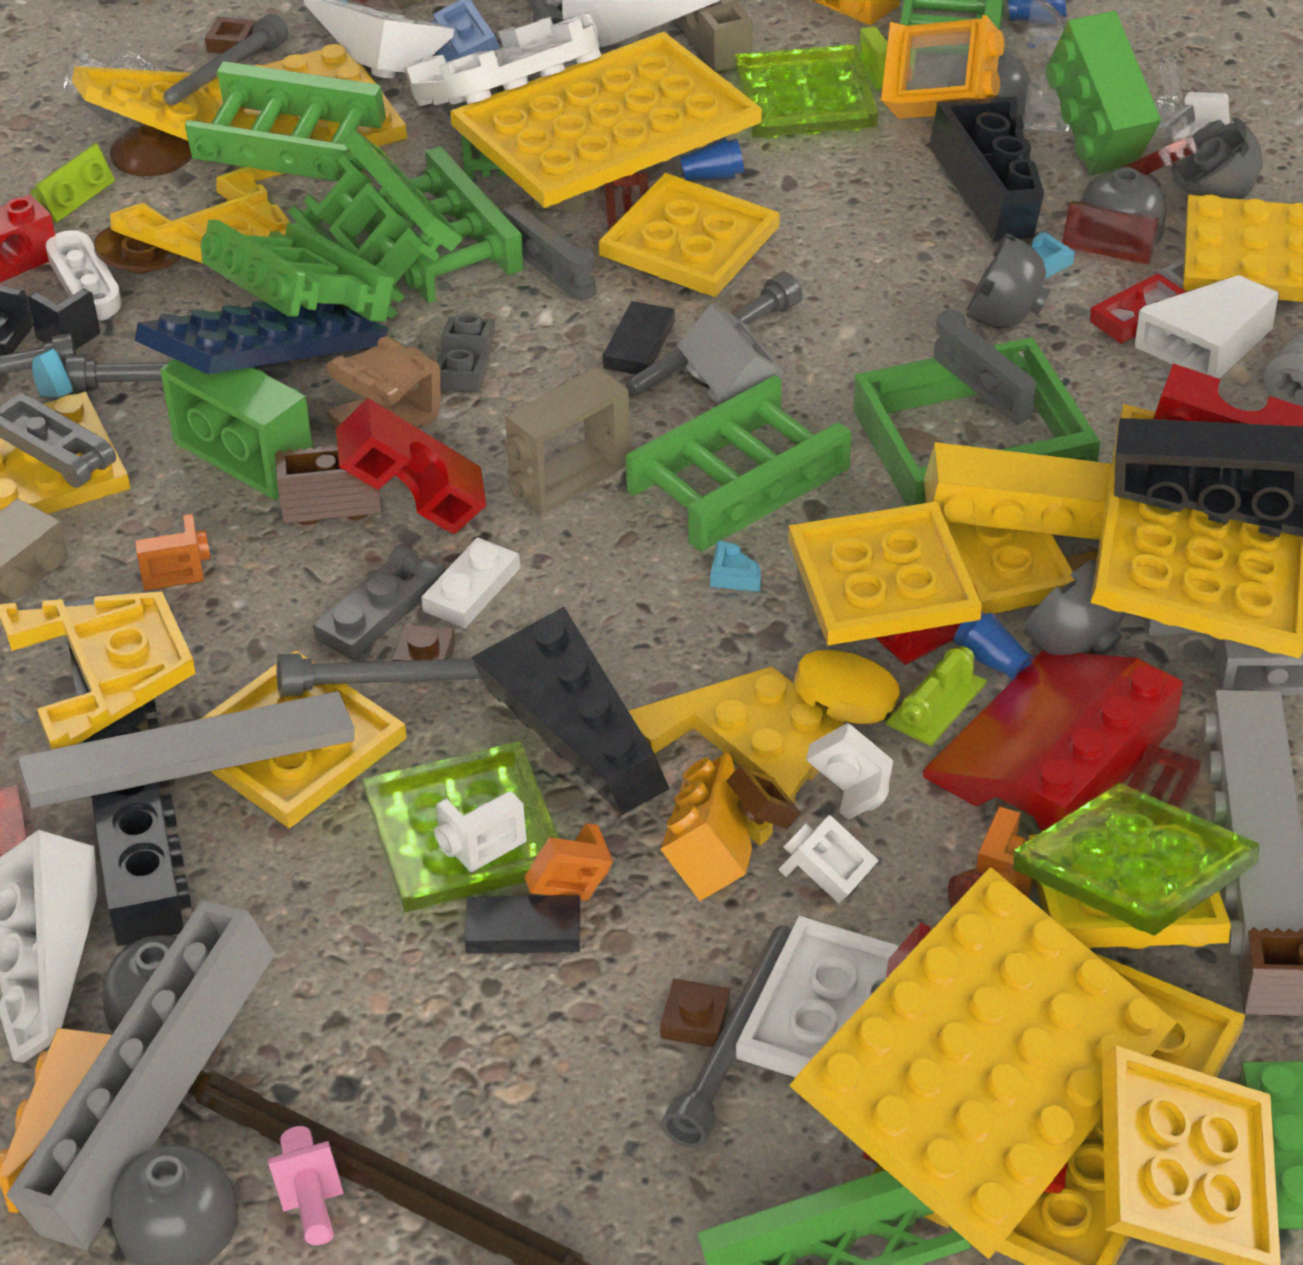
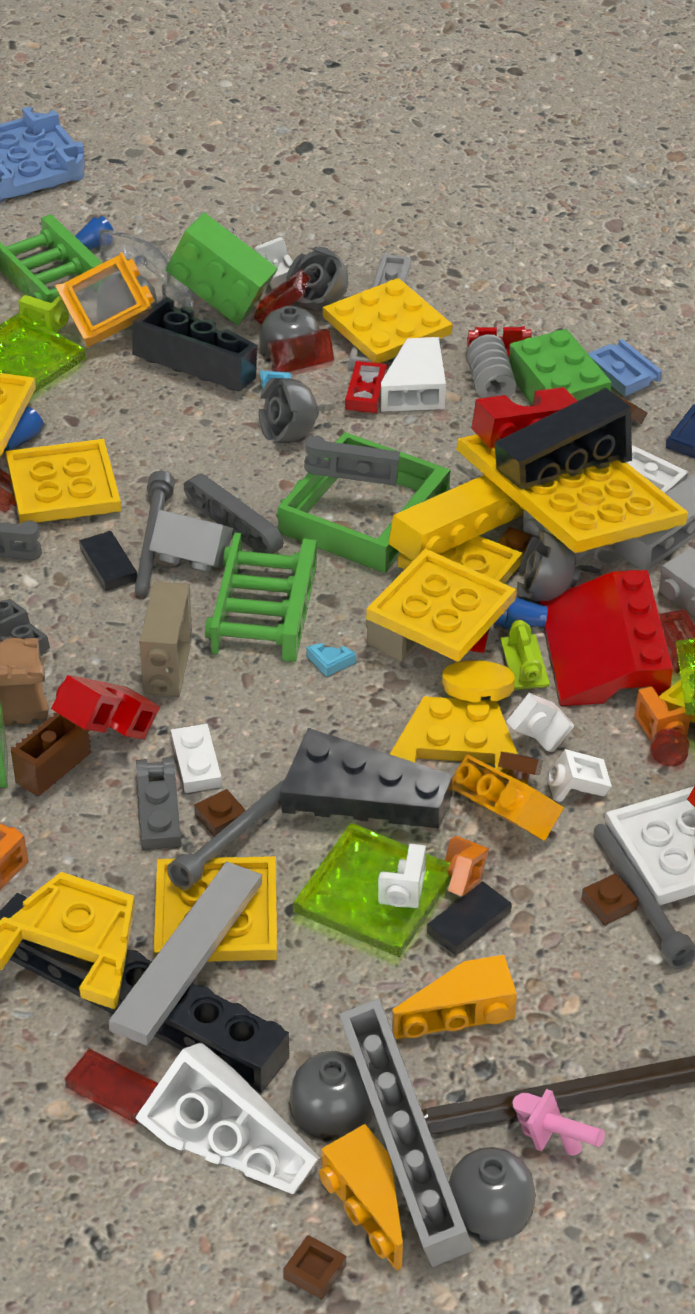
camera: 45 degrees left, 0 degrees up
(400, 993) = (463, 997): none -> light orange slope
(815, 363) = (232, 512): none -> dark grey beam

